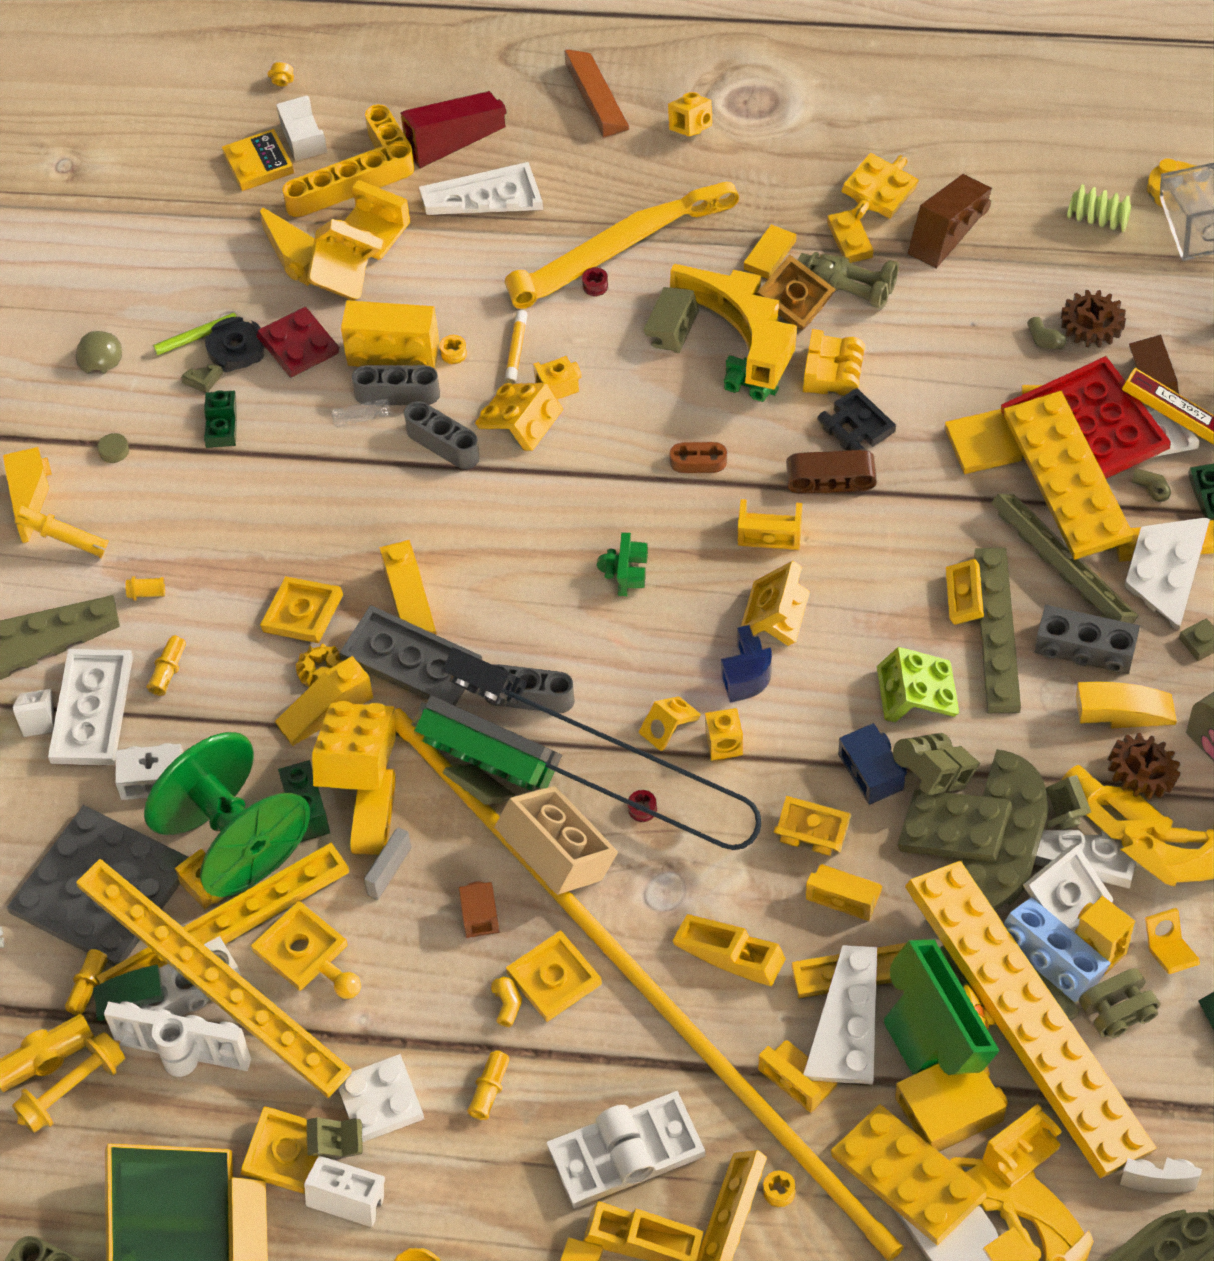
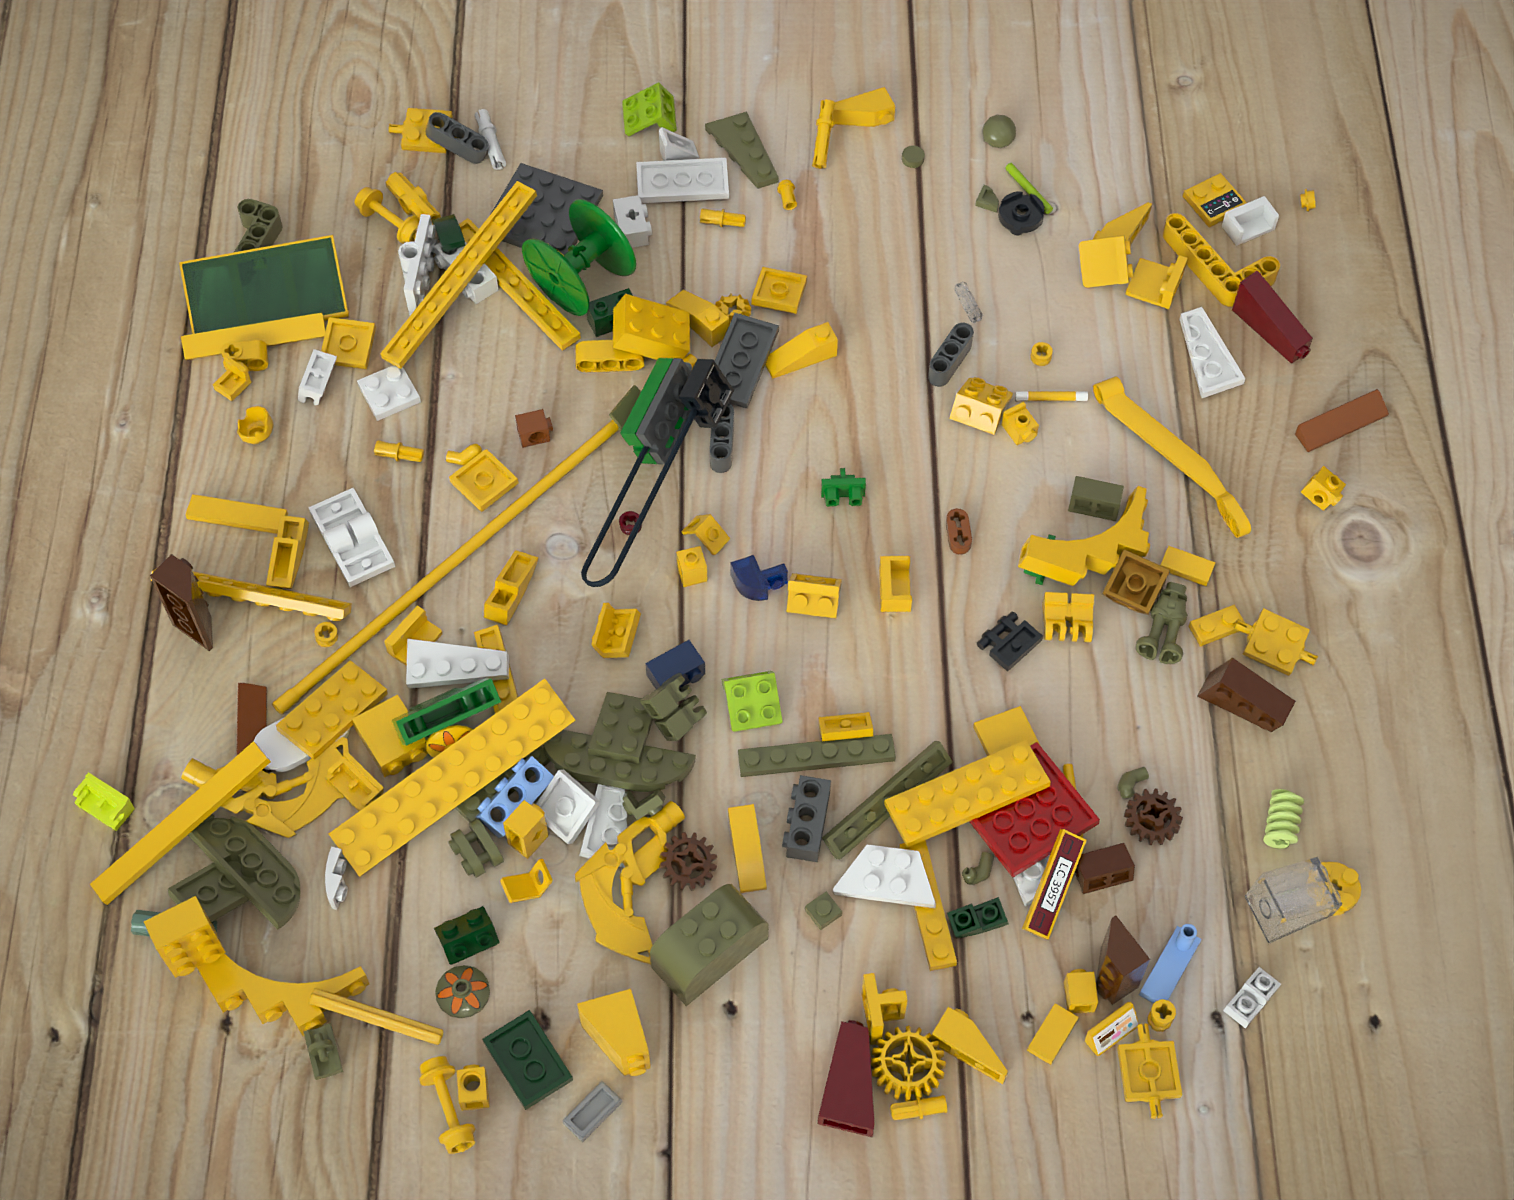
camera: 80 degrees right, 5 degrees up
(85, 982) = (462, 214): yellow axle -> none
(220, 419) = (954, 215): dark green slope -> none
(298, 342) = (1027, 250): dark red plate -> none
(303, 966) = (498, 341): yellow plate -> none
(334, 1138) = (350, 362): olive bracket -> none
(387, 863) = (566, 369): light grey tile -> none
(389, 334) = (1034, 302): yellow brick -> none
(396, 383) = (995, 318): dark grey beam -> none
(555, 839) = (584, 462): tan brick -> none
(594, 288) = (1129, 449): dark red bush -> none
(831, 471) = (954, 624): reddish brown beam -> none
(843, 892) = (565, 659): yellow panel -> none

